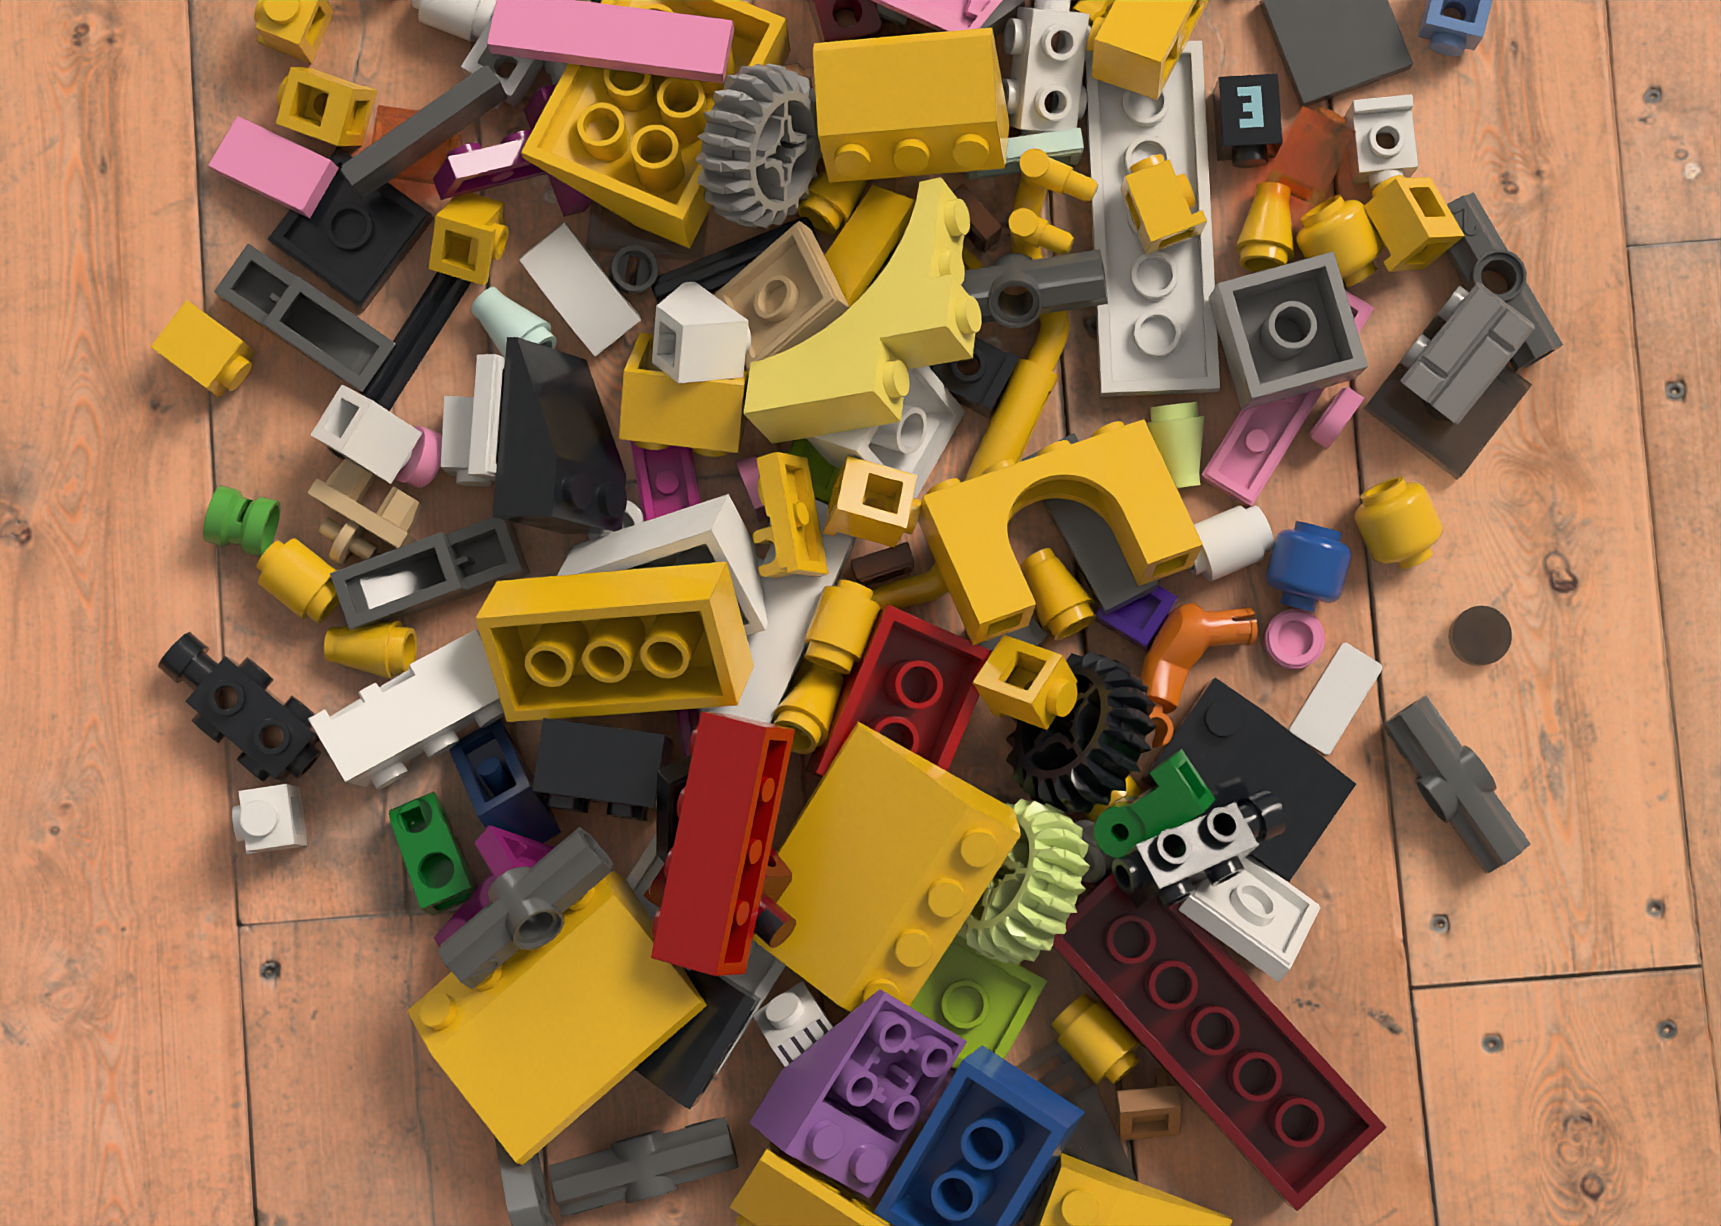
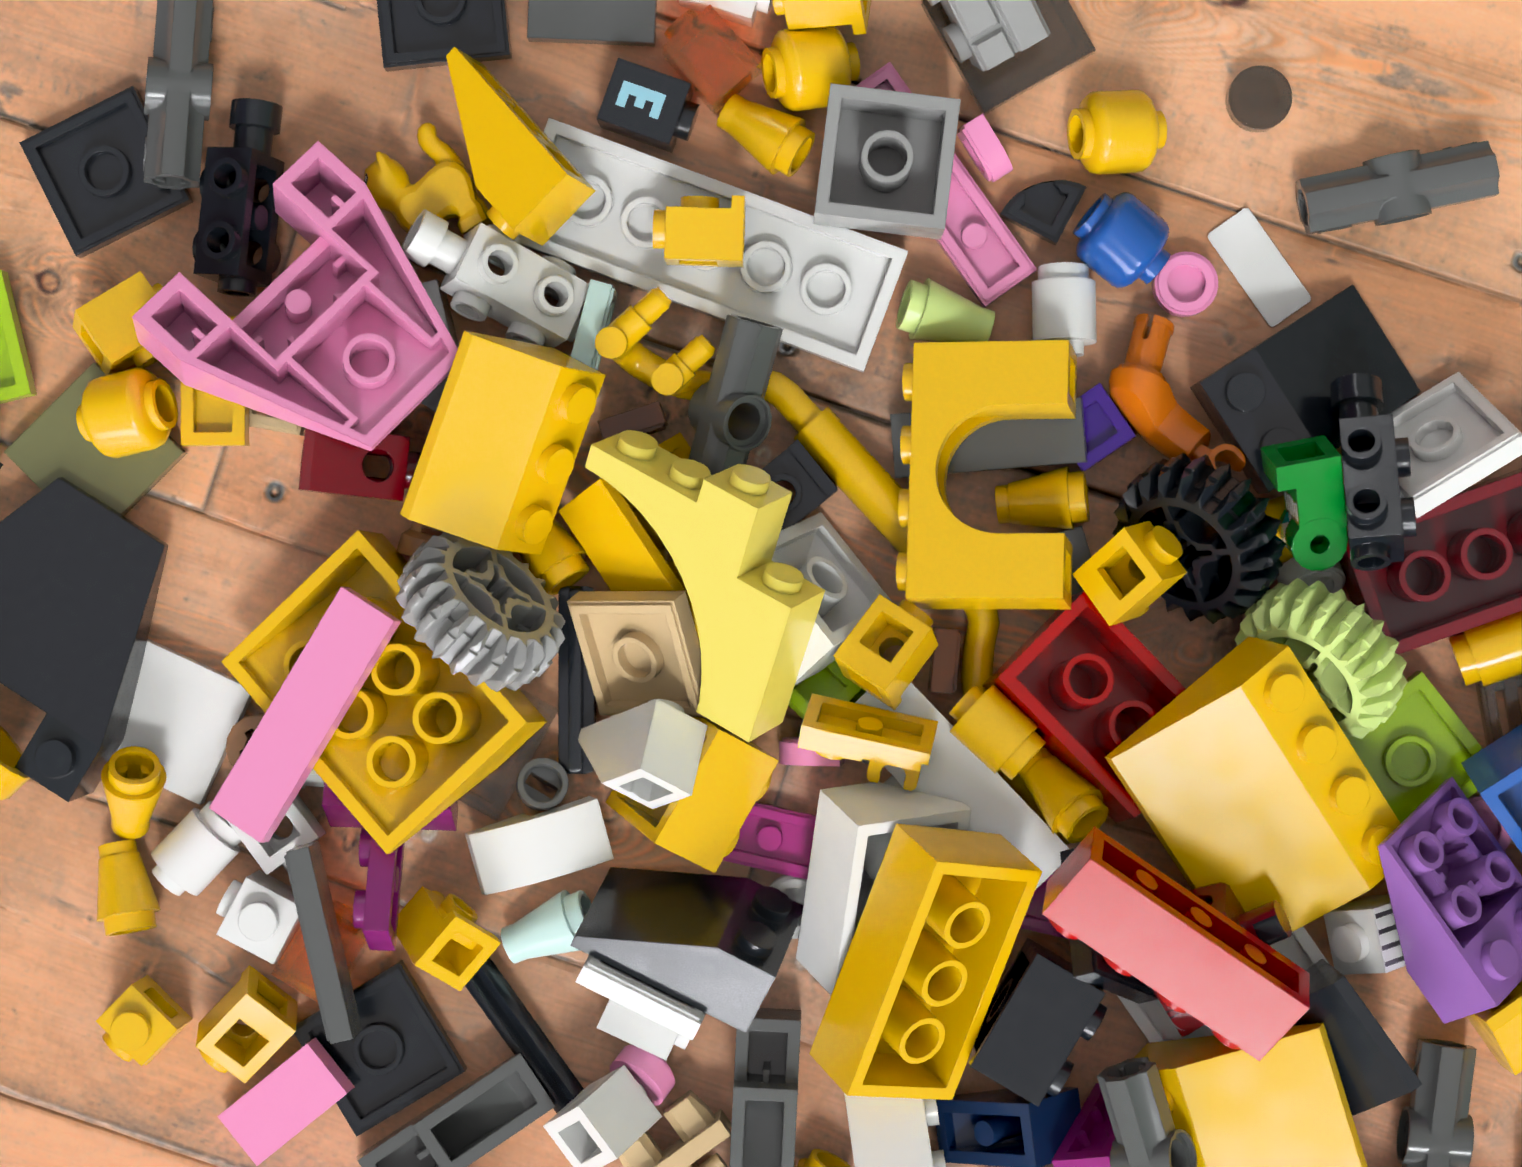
camera: 80 degrees left, 5 degrees up
(421, 73) = (259, 916): none -> white brick
(1307, 492) = (1044, 208): none -> black tile

